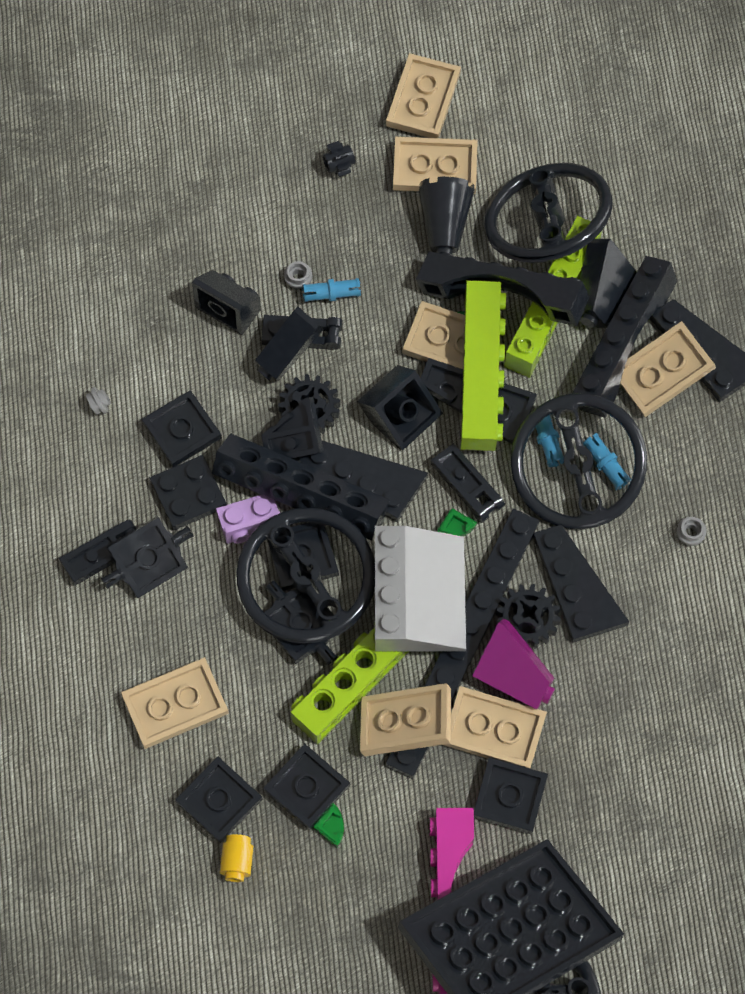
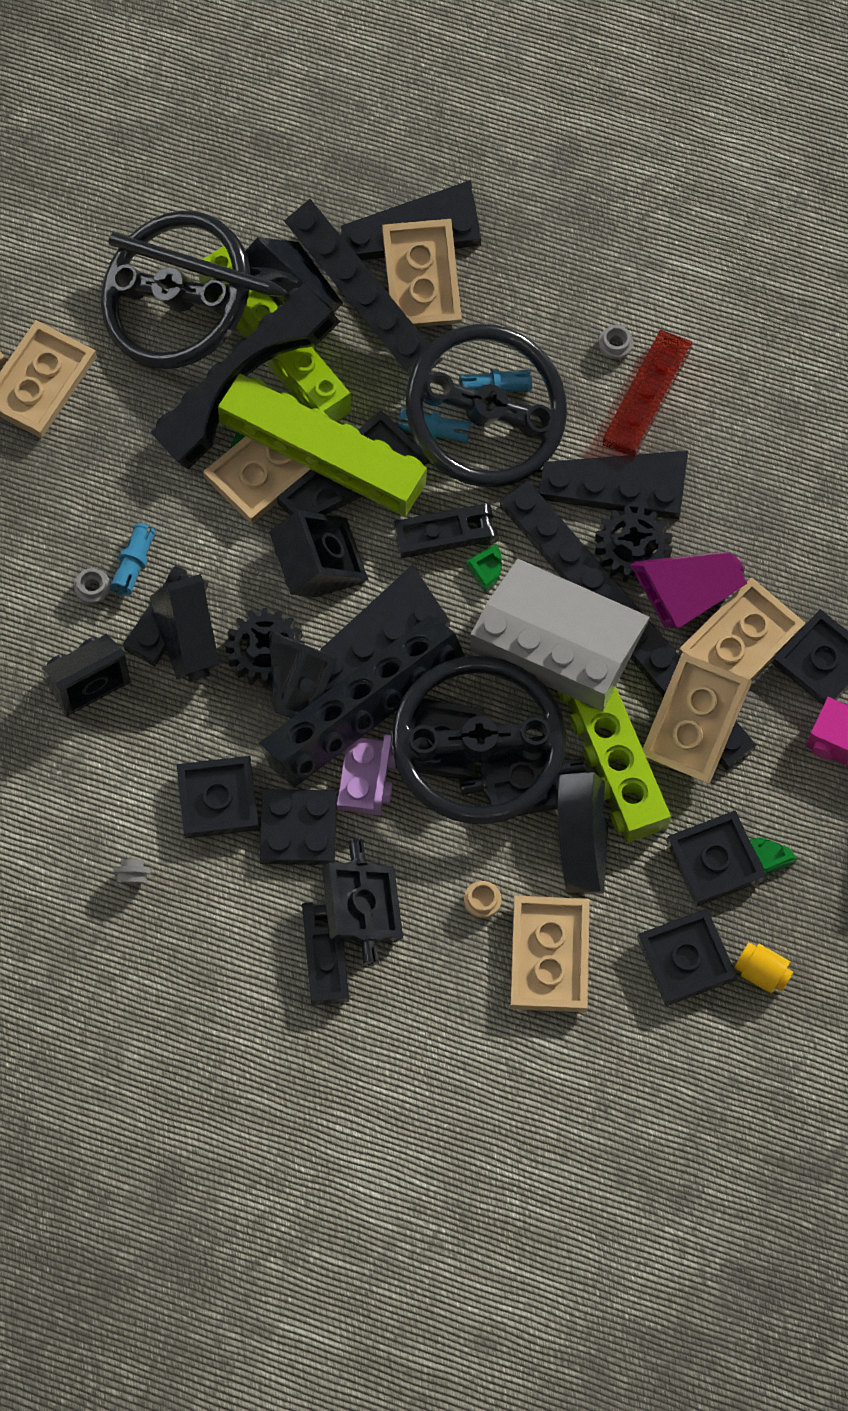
camera: 65 degrees left, 0 degrees up
(194, 639) = (482, 899): none -> tan plate
(275, 681) = (582, 832): none -> black slope
(445, 211) = (111, 394): black cone -> none
(568, 255) = (263, 283): none -> black piece
(659, 571) = (647, 393): none -> clear red plate

